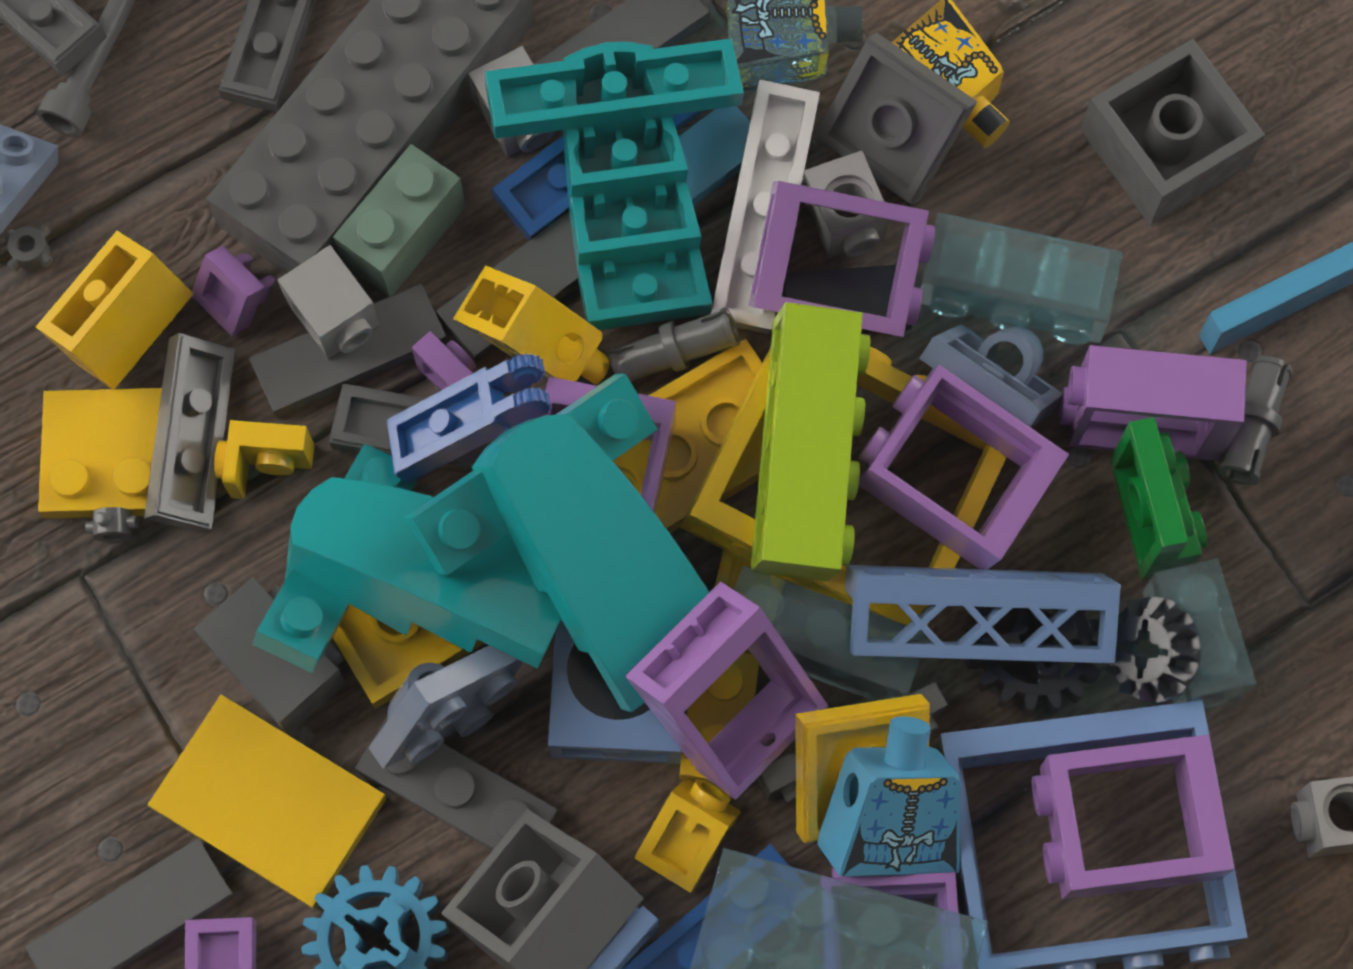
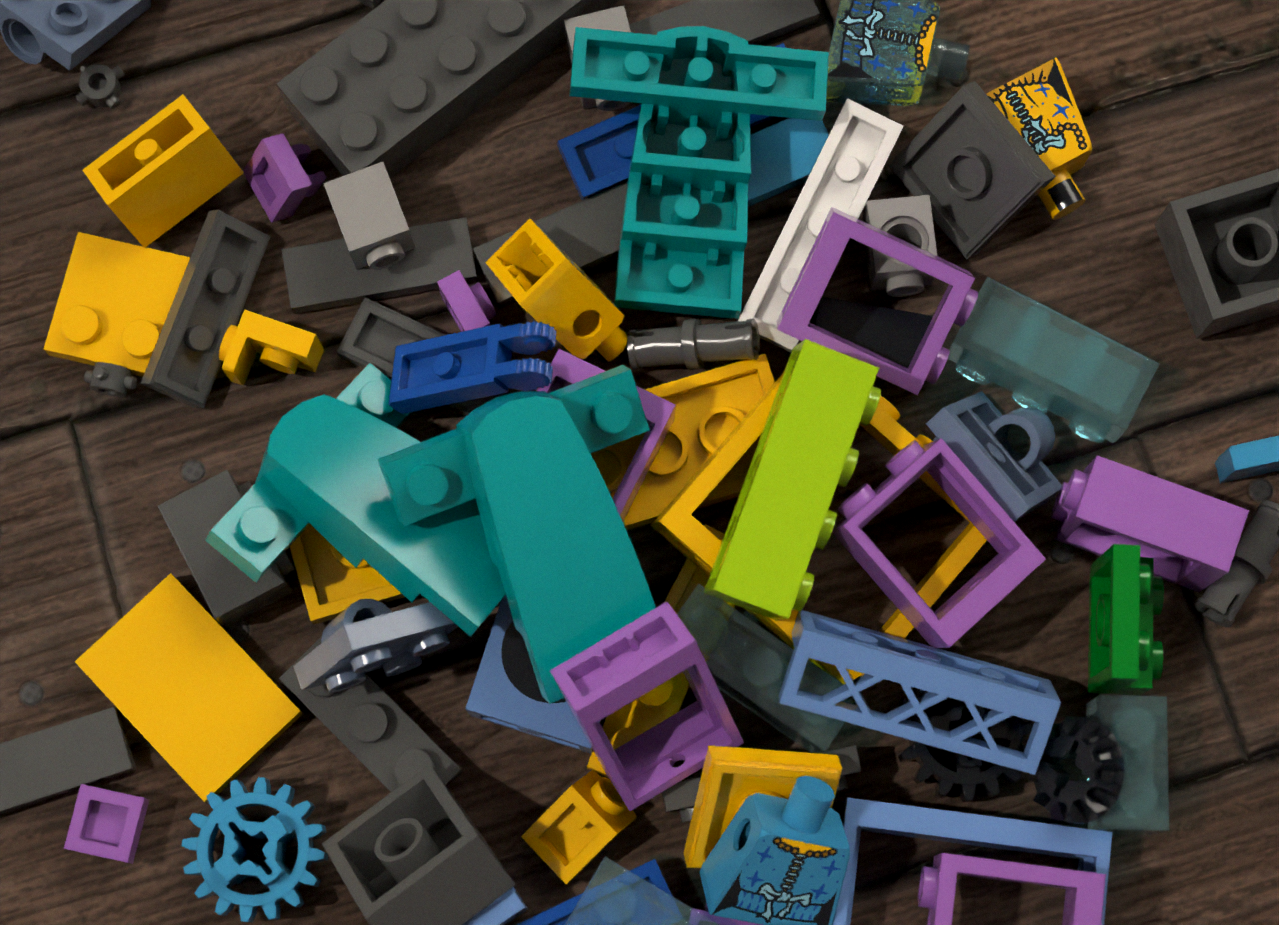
camera: 15 degrees right, 5 degrees up
(400, 221) = (460, 150): sand green brick -> none

